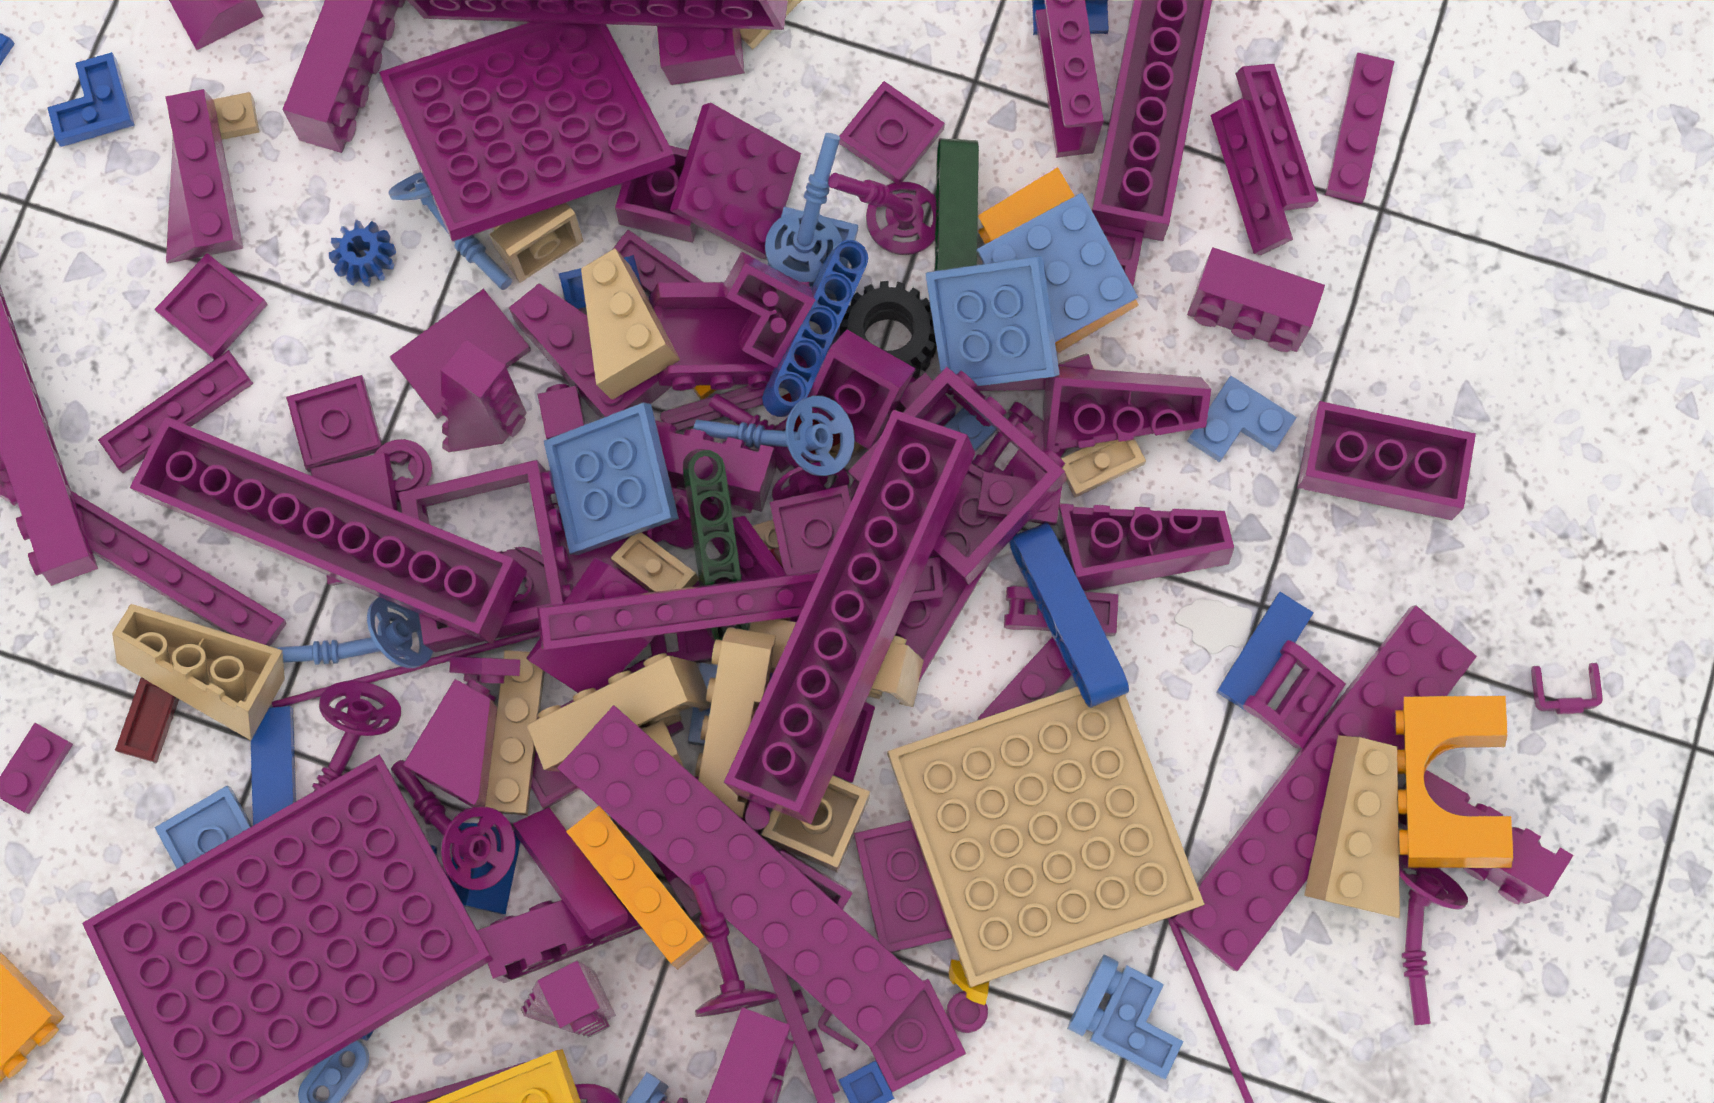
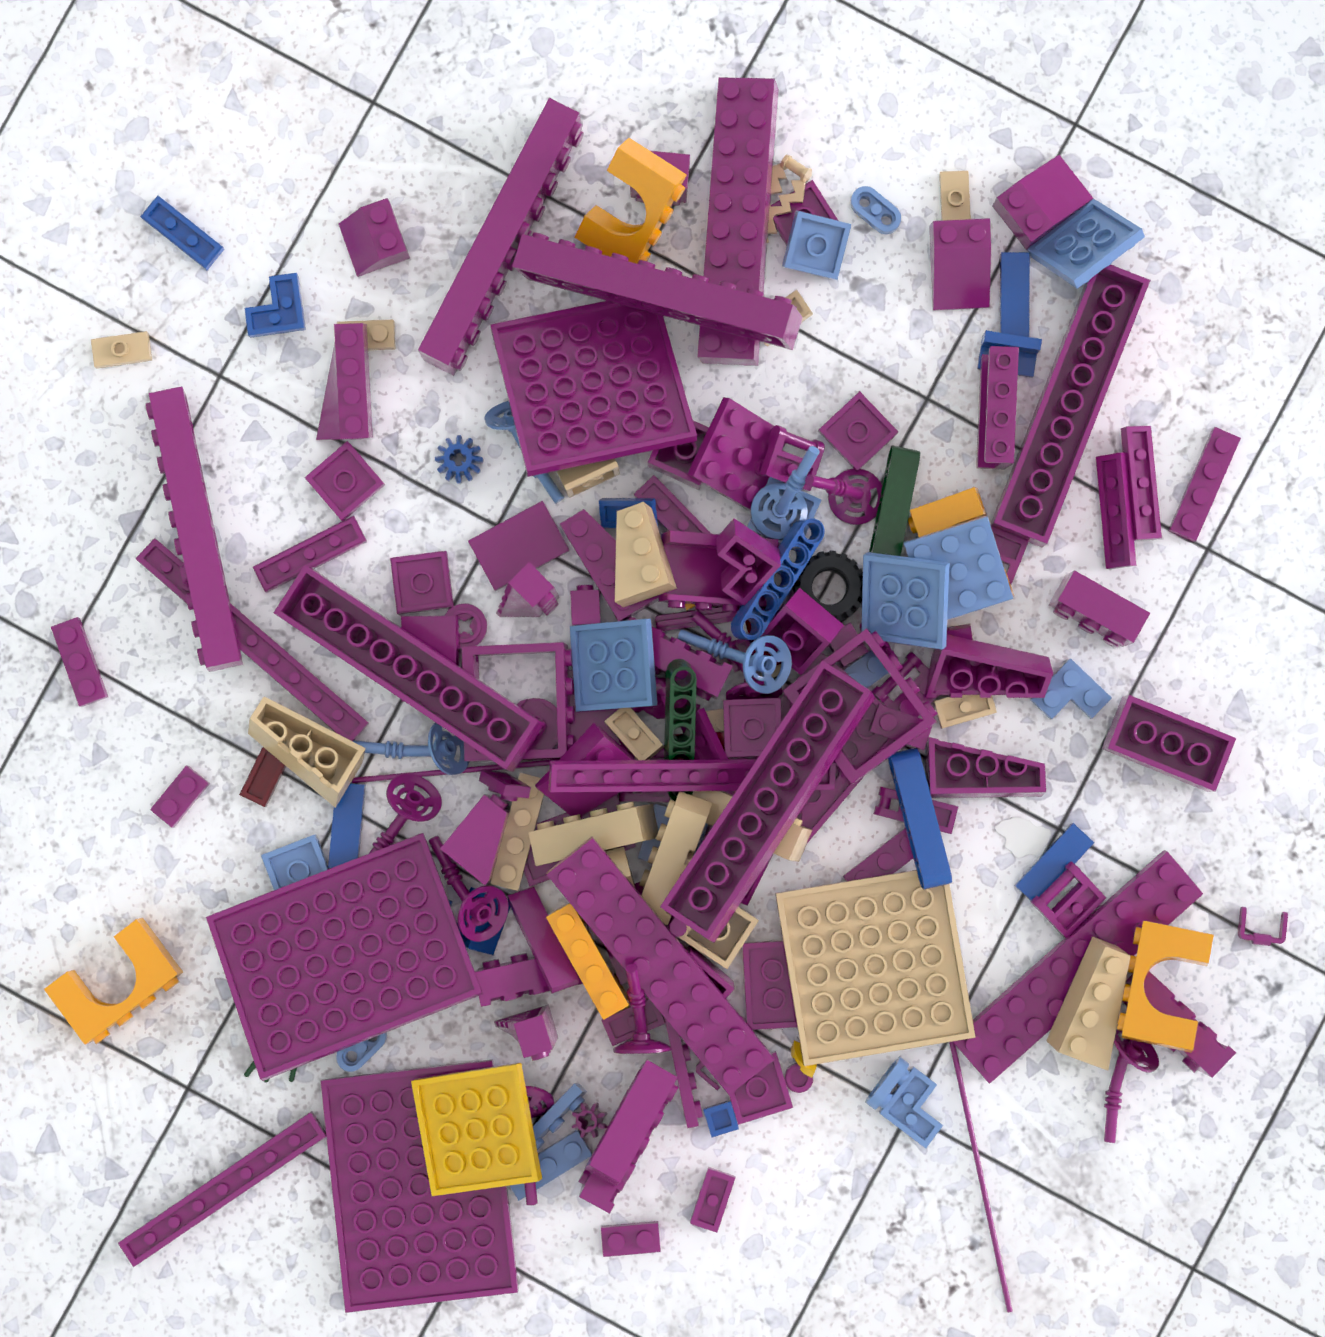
camera: 15 degrees right, 10 degrees up
(702, 977) = (622, 1024): none -> magenta plate
(791, 180) = (779, 463): none -> magenta plate

